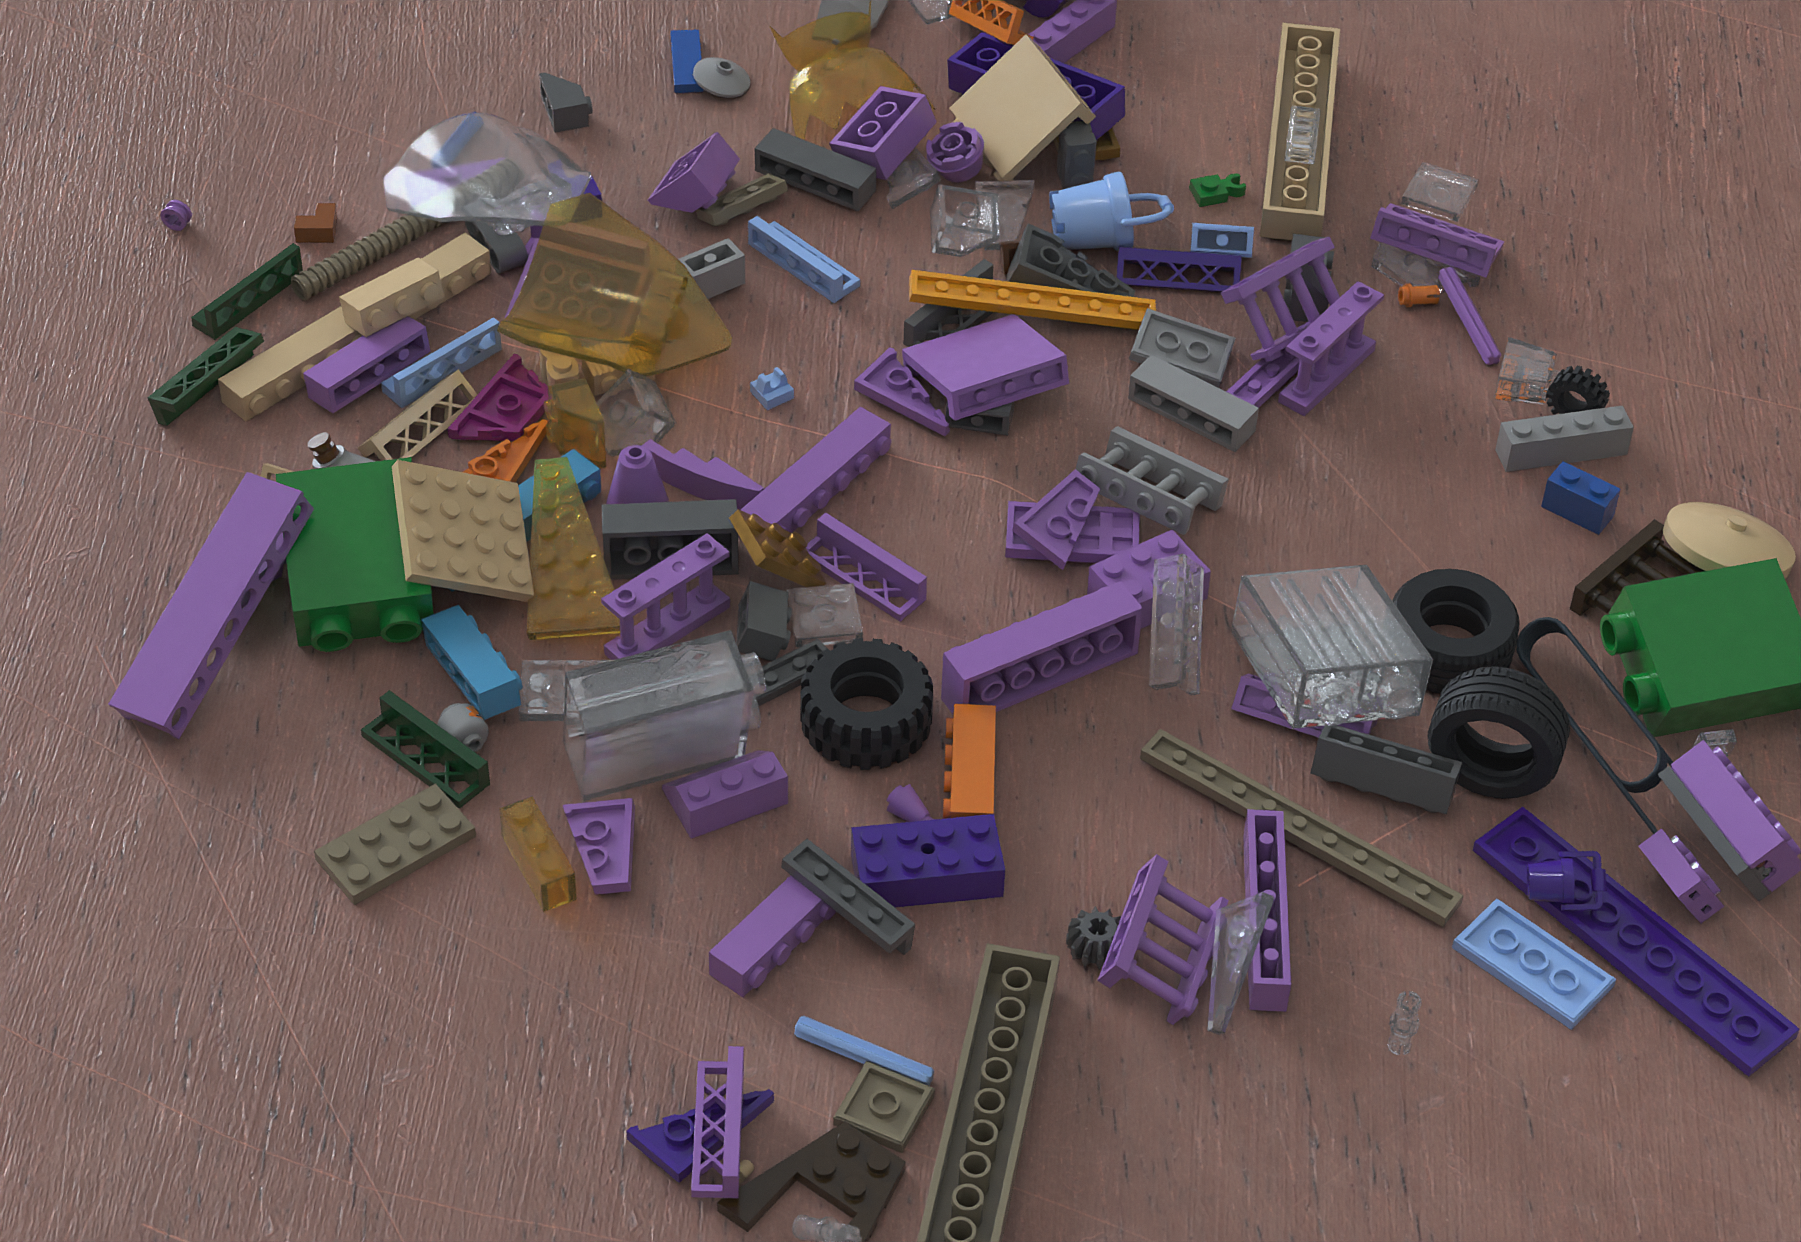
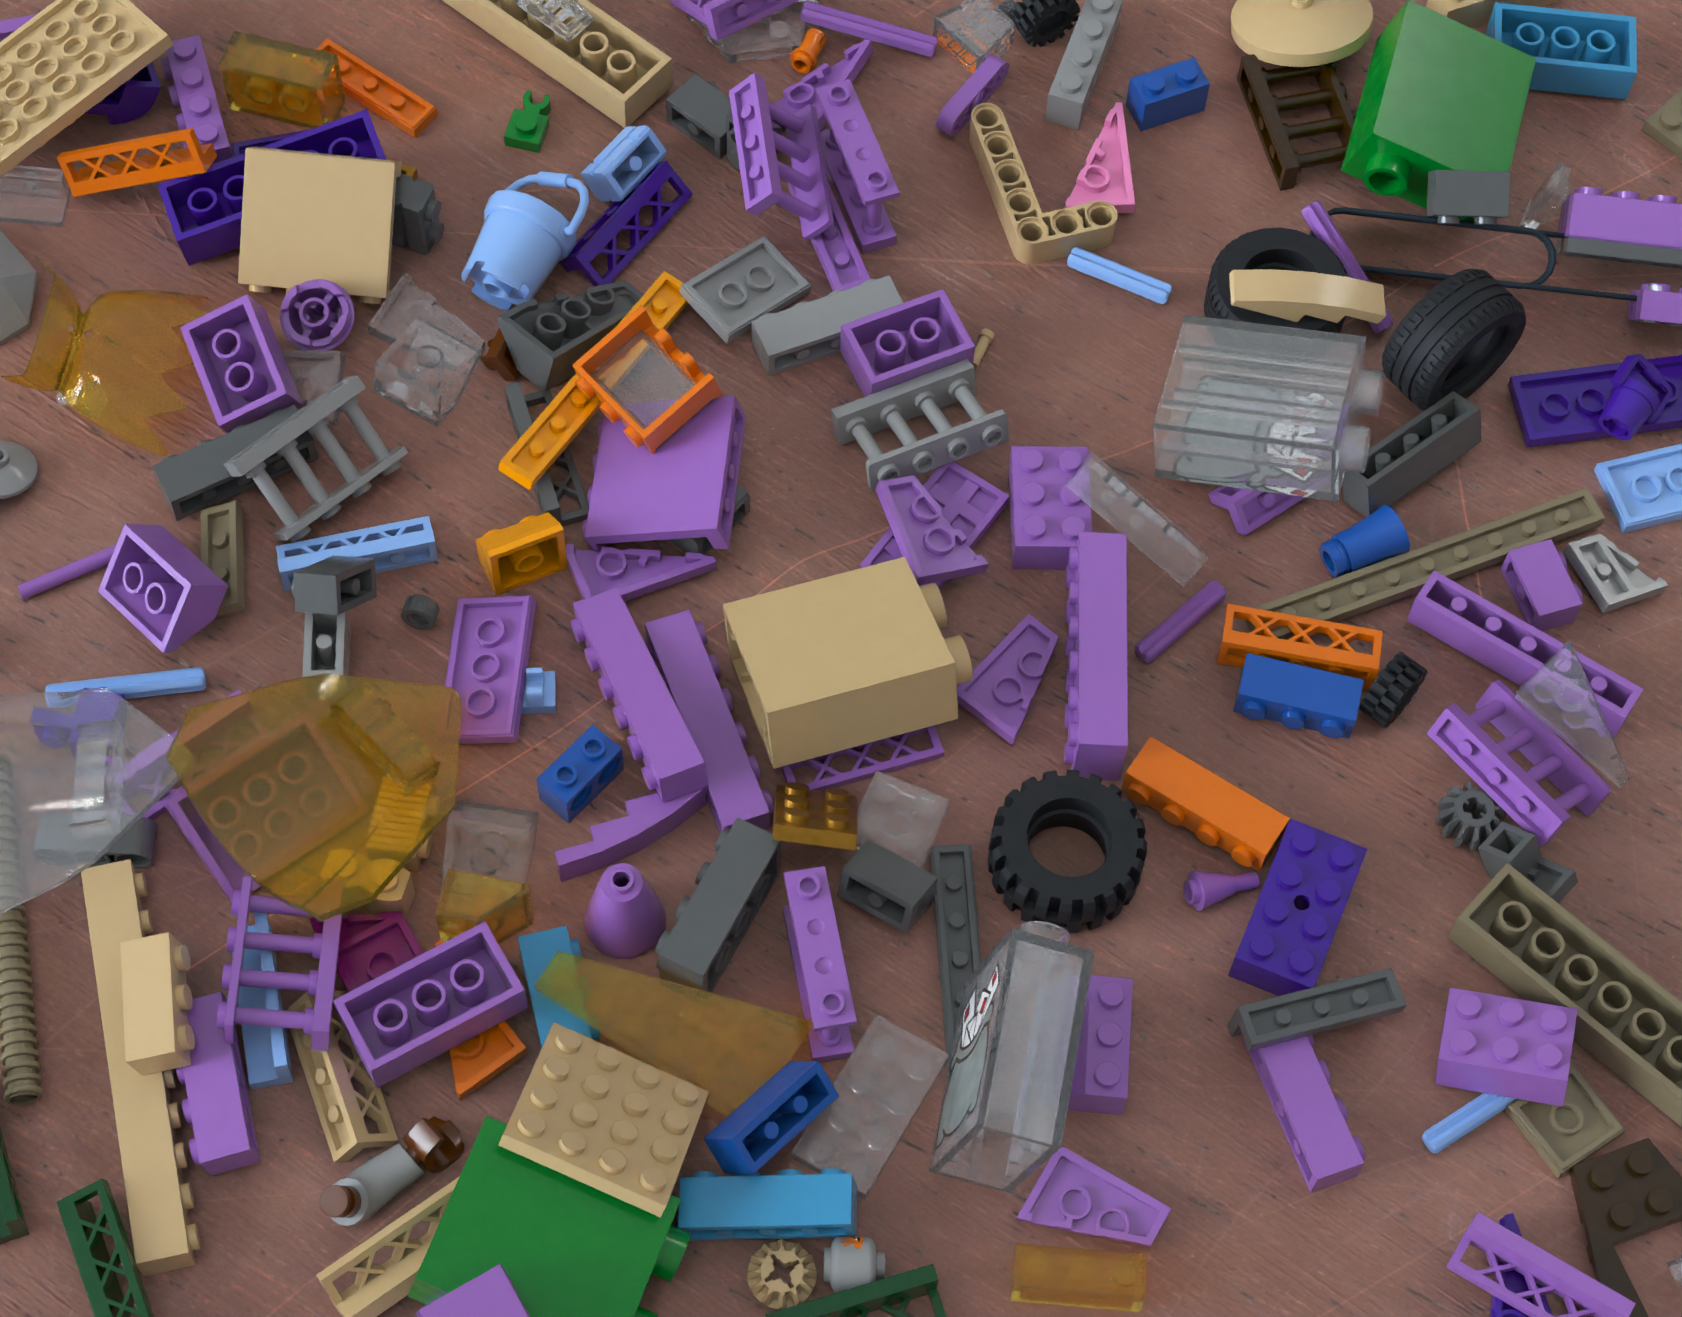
camera: 60 degrees left, 15 degrees up
(447, 694) = (775, 1292): none -> tan gear
(462, 367) = (317, 983): none -> medium lavender fence
(488, 423) = (431, 1004): none -> medium lavender brick
(533, 627) = (771, 1117): none -> blue brick
(622, 207) = (141, 684): none -> light blue axle
(667, 138) = (66, 573): none -> medium lavender bar
(723, 432) = (580, 773): none -> blue brick
(753, 240) = (334, 585): none -> dark grey brick
(782, 305) = (420, 612): none -> dark grey axle
(783, 348) = (490, 665): none -> medium lavender tile
(800, 427) = (639, 696): none -> medium lavender brick
(838, 168) = (283, 442): none -> light grey fence
(864, 328) = (522, 552): none -> light orange slope
(906, 1026) = (1506, 1046): none -> medium lavender brick
(909, 508) = (845, 661): none -> tan brick
(972, 617) = (1009, 678): none -> medium lavender wing
(1037, 306) = (644, 380): none -> window
(1075, 980) = (1522, 852): none -> dark grey brick
(1113, 791) = (1298, 696): none -> blue brick
(1122, 50) = (281, 80): none -> clear yellow brick
(1122, 701) = (1180, 621): none -> medium lavender axle
(1146, 773) = (1300, 649): none -> orange fence
(1153, 826) = (1393, 689): none -> black tyre
(1168, 105) = (381, 92): none -> orange tile
(1213, 441) = (904, 342): none -> medium lavender brick
(1267, 494) = (985, 338): none -> tan piece
(1285, 775) = (1365, 543): none -> blue plant
(1345, 903) = (1542, 585): none -> medium lavender brick
(1385, 470) = (1014, 193): none -> tan beam
(1393, 543) = (1119, 275): none -> light blue axle
(1396, 316) = (803, 93): none -> medium lavender wing
(1399, 947) = (1610, 573): none -> light grey wing
(1446, 617) = (1302, 293): none -> tan slope
(1447, 385) = (972, 93): none -> medium lavender beam
(1477, 497) = (1107, 168): none -> bright pink wing
(1529, 634) = (1327, 233): none -> medium lavender axle
(1637, 678) = (1468, 195): none -> dark grey brick

